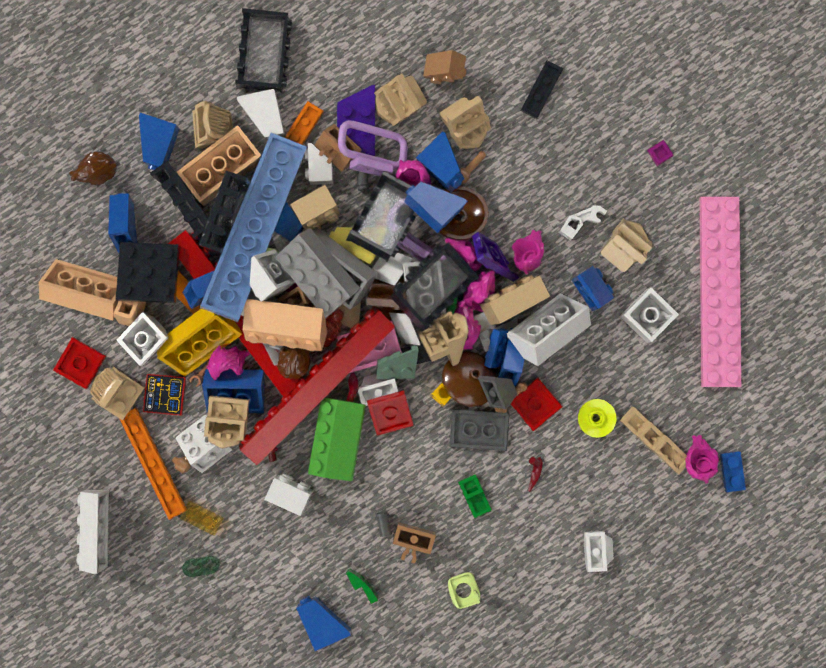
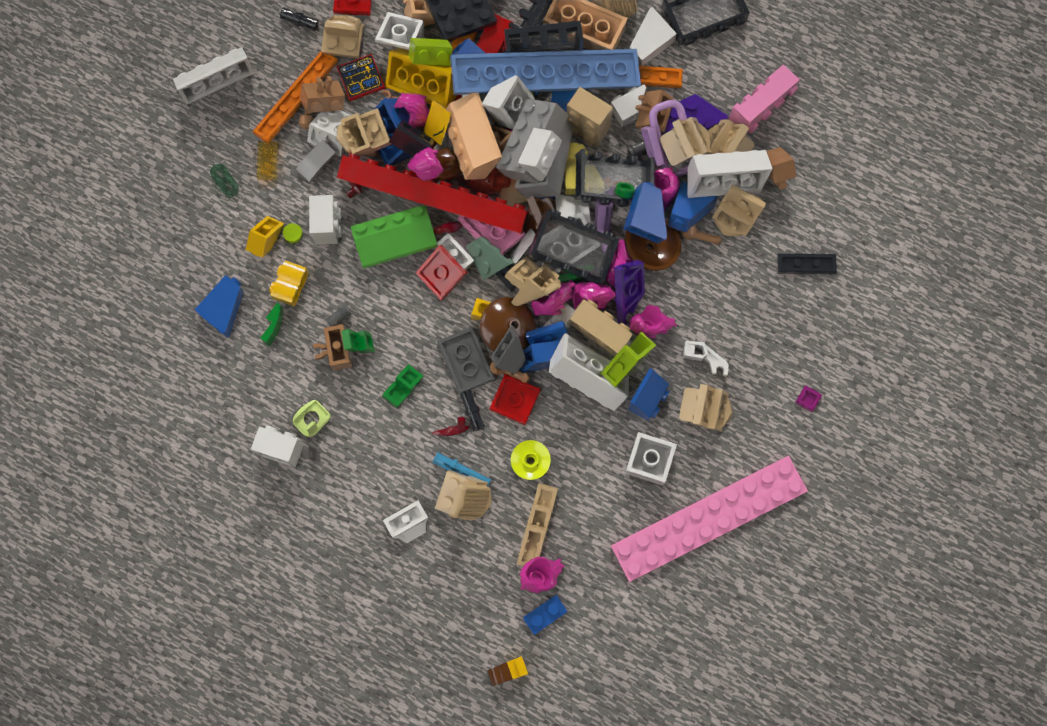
camera: 70 degrees right, 10 degrees down
(77, 424) = (299, 19): none -> black pin
(168, 440) = (322, 96): none -> medium nougat brick
(180, 321) = (430, 51): none -> lime brick
(226, 474) = (315, 161): none -> light grey slope
(252, 348) = (437, 122): none -> yellow sticker
(257, 379) = (410, 139): none -> black slope
(274, 555) = (263, 236): none -> yellow slope
(283, 527) = (292, 233): none -> lime tile
(292, 380) = (426, 164): none -> dark pink hair
(330, 553) = (289, 283): none -> yellow brick
(340, 273) = (539, 152): none -> white slope
(375, 44) = (765, 99): none -> bright pink wedge
(385, 135) = (685, 141): none -> tan piece
(402, 213) = (624, 190): none -> green tile
(418, 518) = (357, 341): none -> green slope
(430, 119) = (717, 172): none -> white slope
(478, 634) = (276, 446): none -> white brick
(527, 446) = (472, 411): none -> black pin
(560, 289) = (628, 359): none -> lime panel
(574, 483) = (453, 465): none -> dark azure pin
(602, 492) = (464, 496): none -> tan piece
(765, 526) = (507, 671): none -> leg

